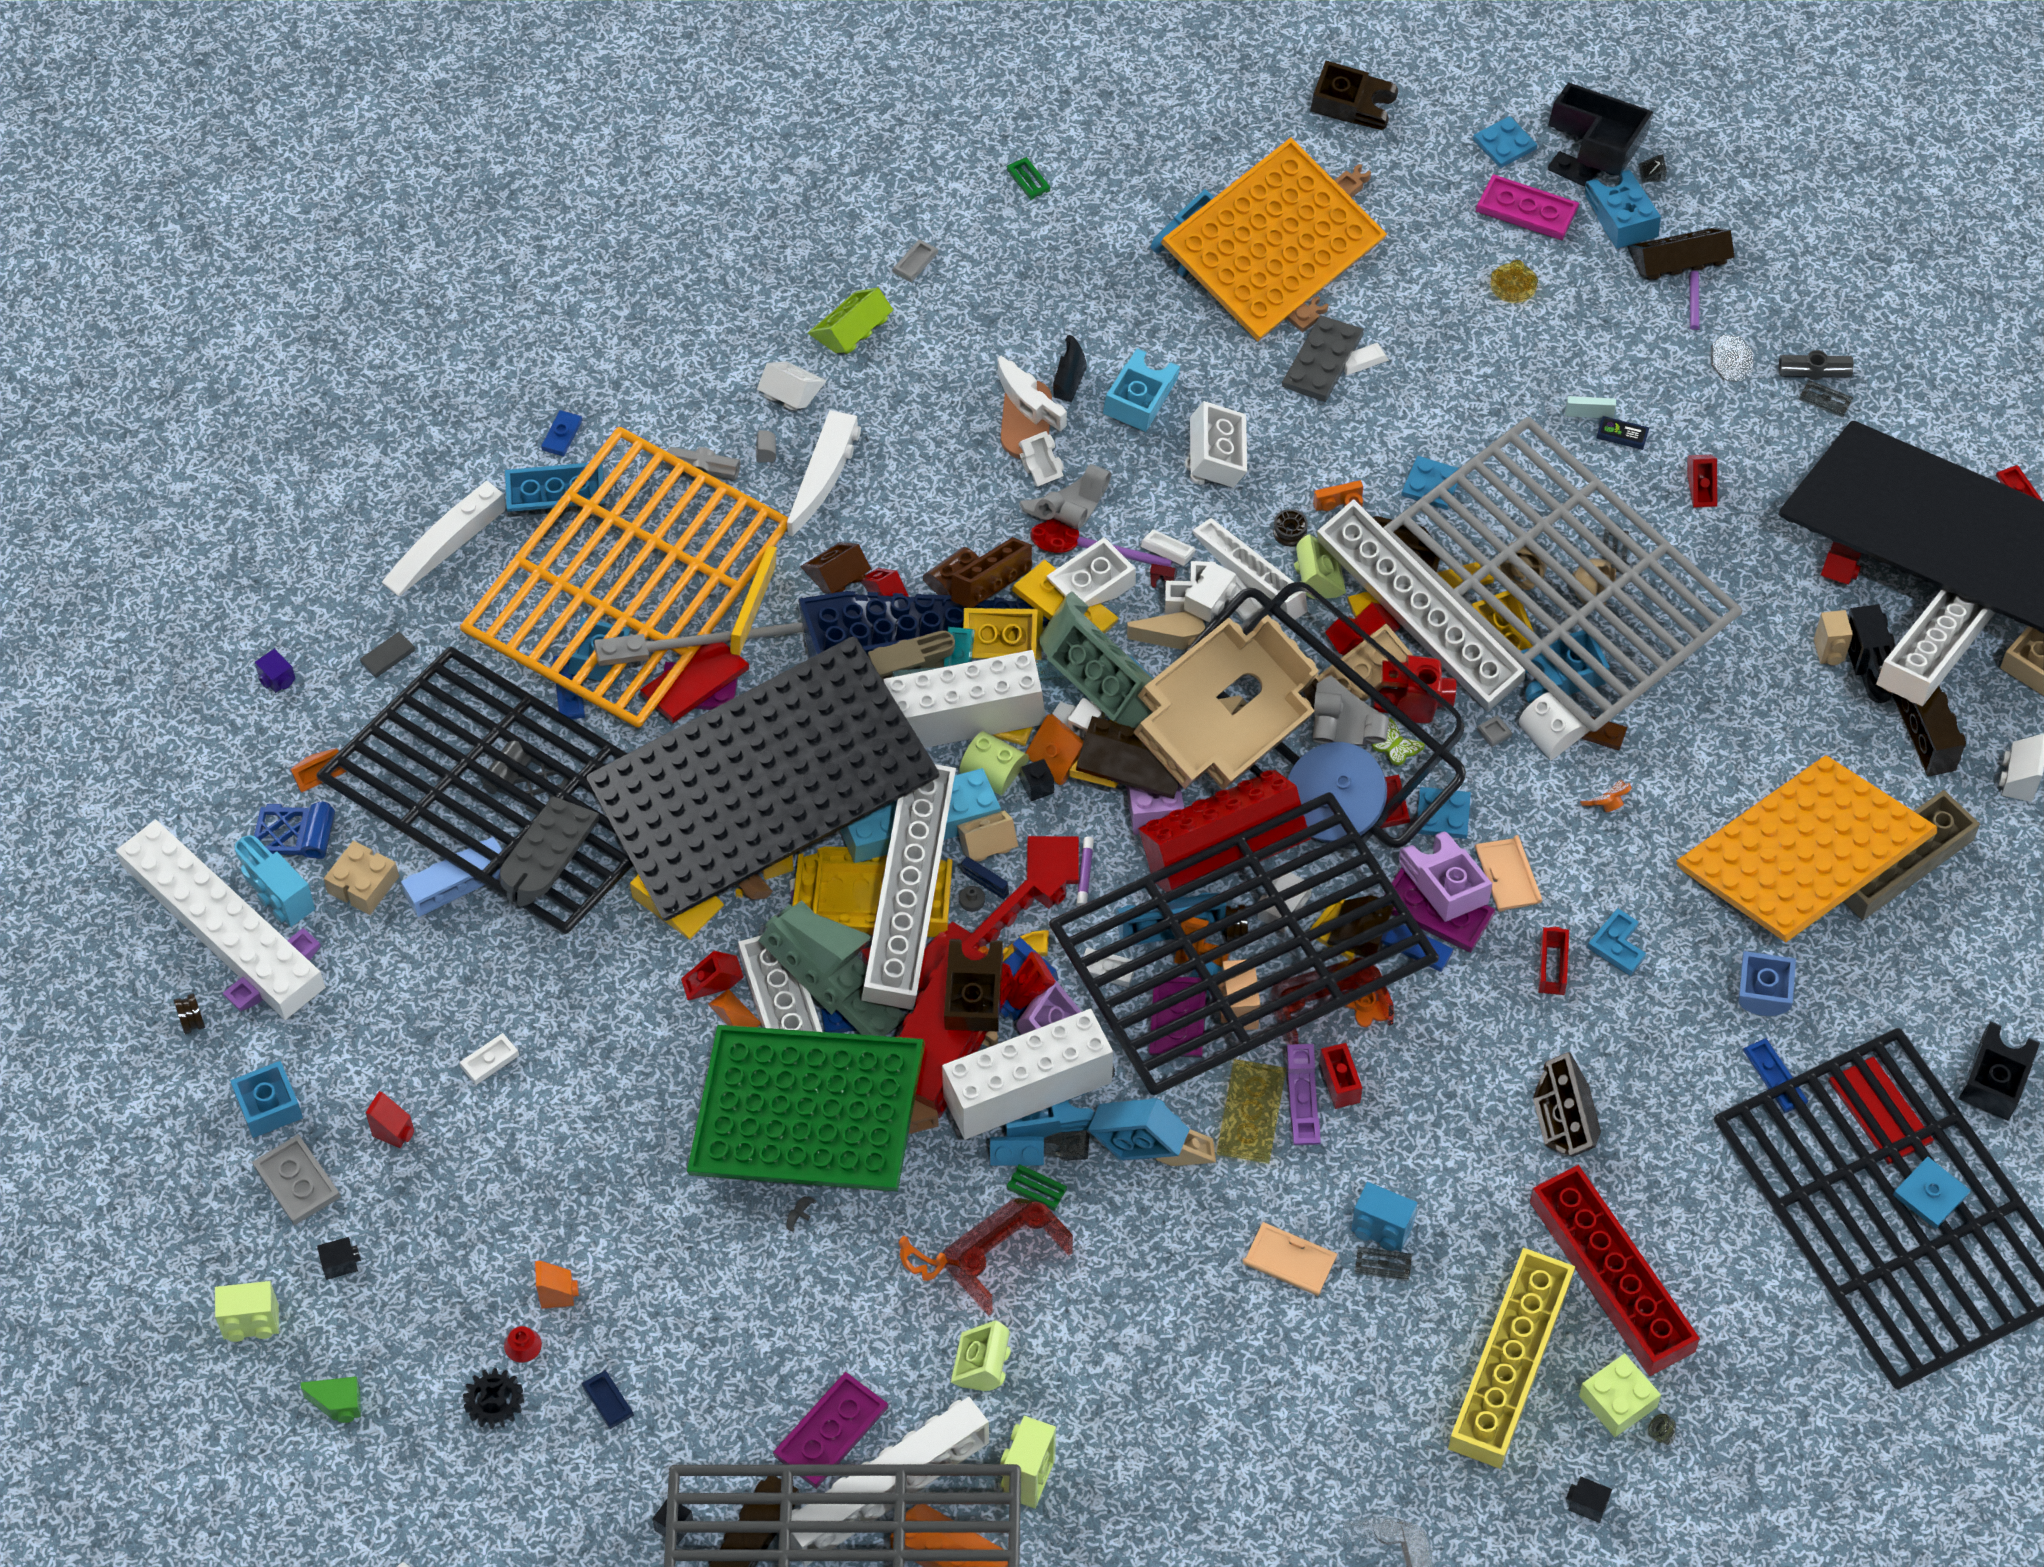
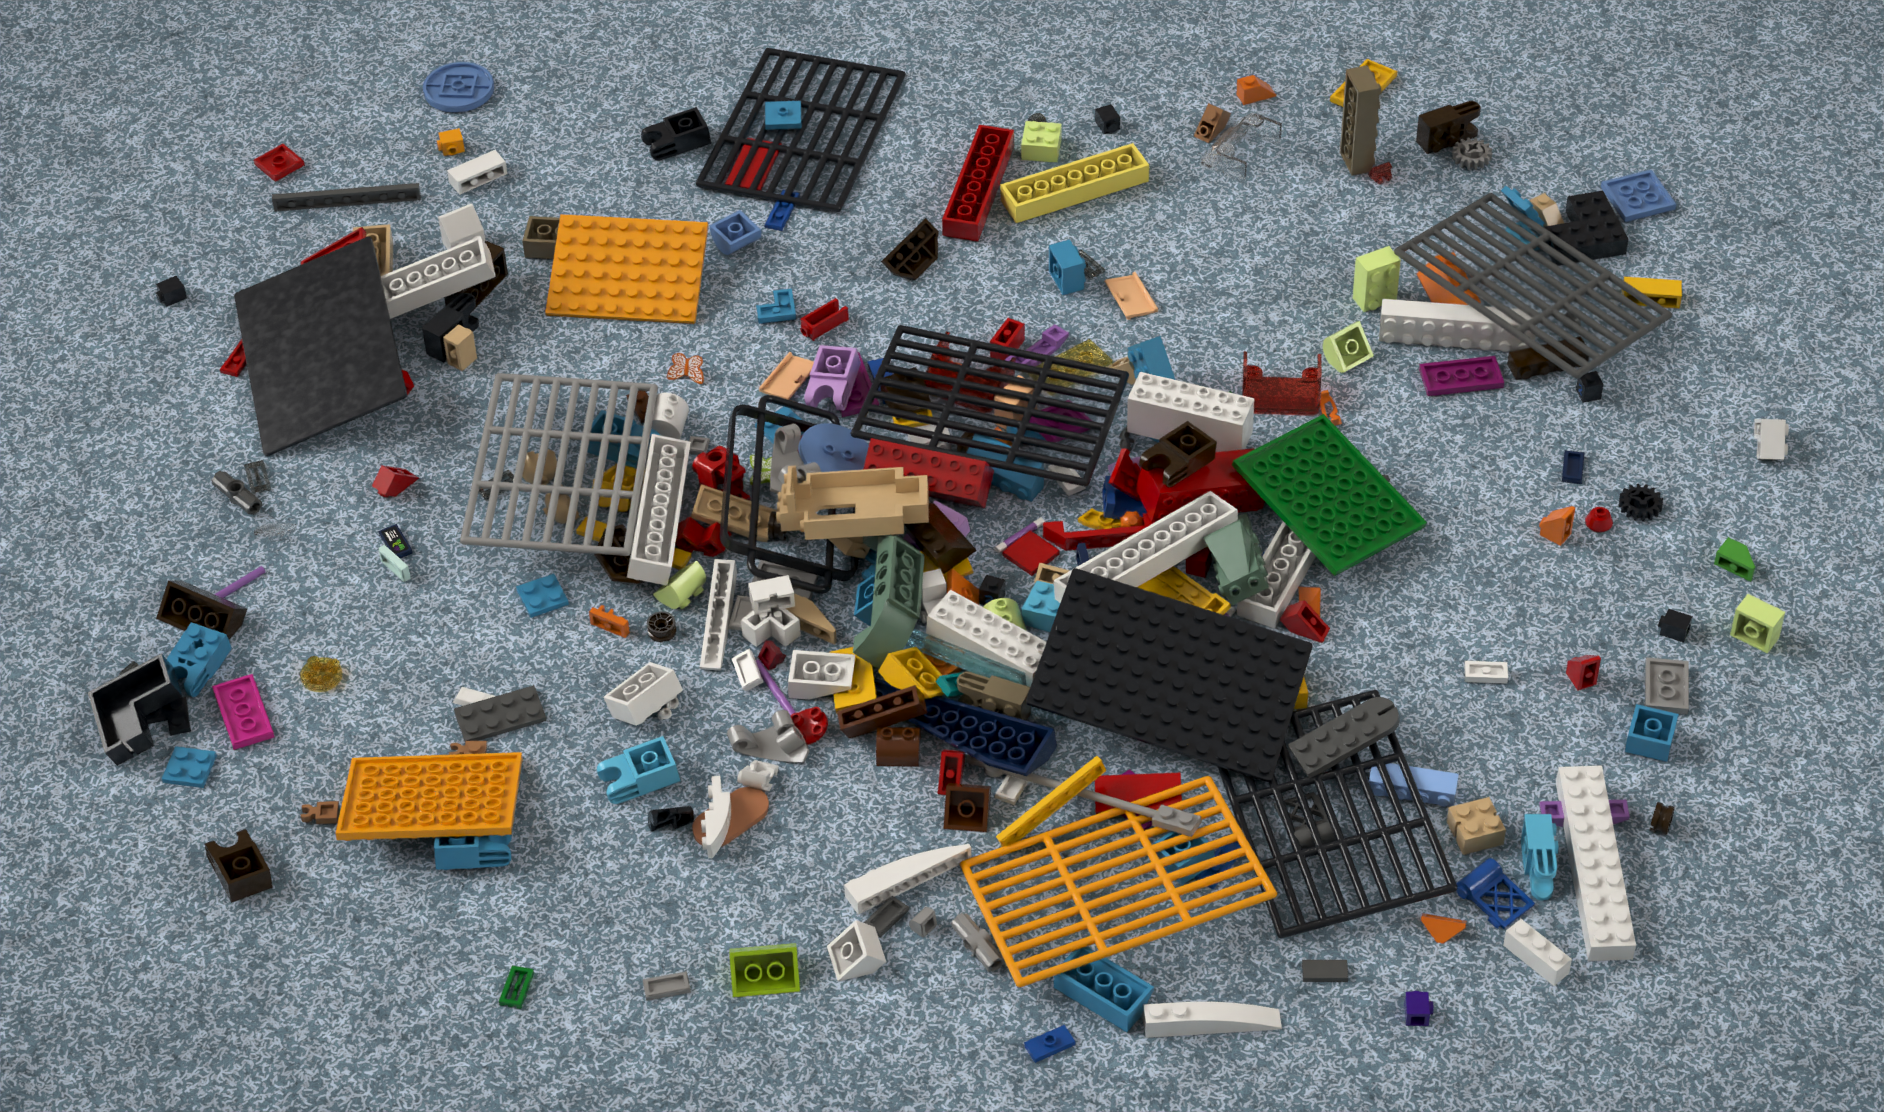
camera: 135 degrees left, 10 degrees down
(207, 794) = (1537, 952): none -> white brick
(803, 434) = (887, 915): none -> dark grey tile

